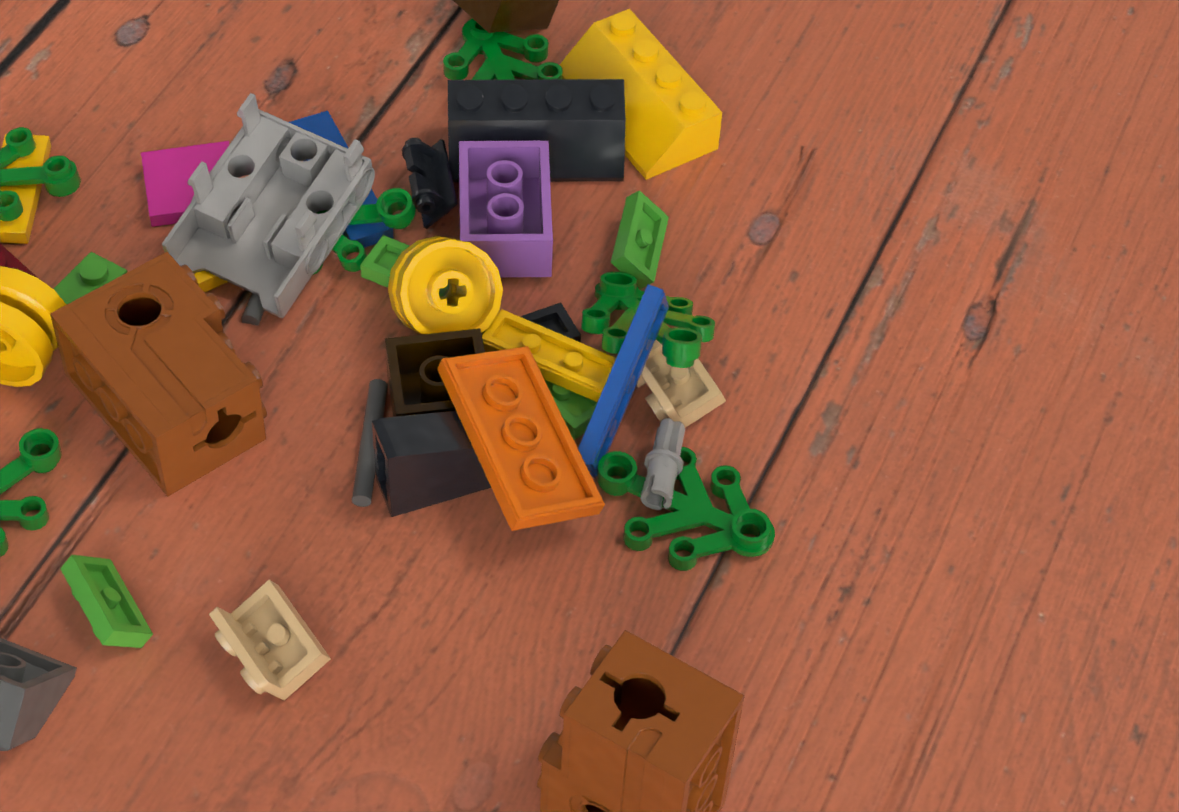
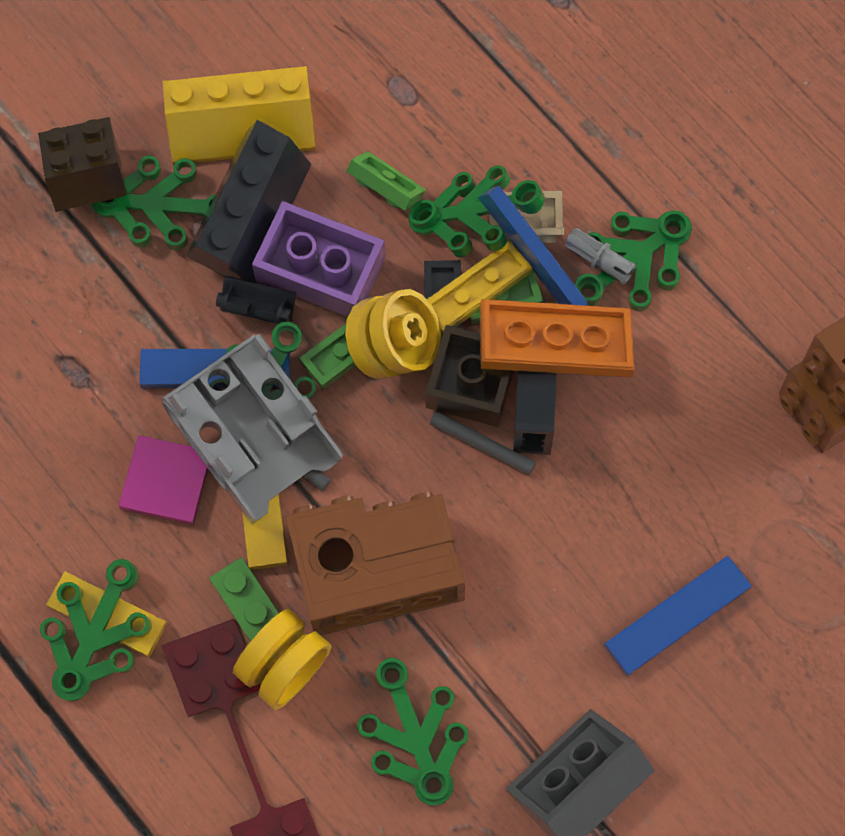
camera: 60 degrees left, 20 degrees up
(106, 601) = (552, 669): bright green plate -> none
(237, 718) = (677, 616): none -> blue tile
(270, 642) = (633, 571): tan bracket -> none

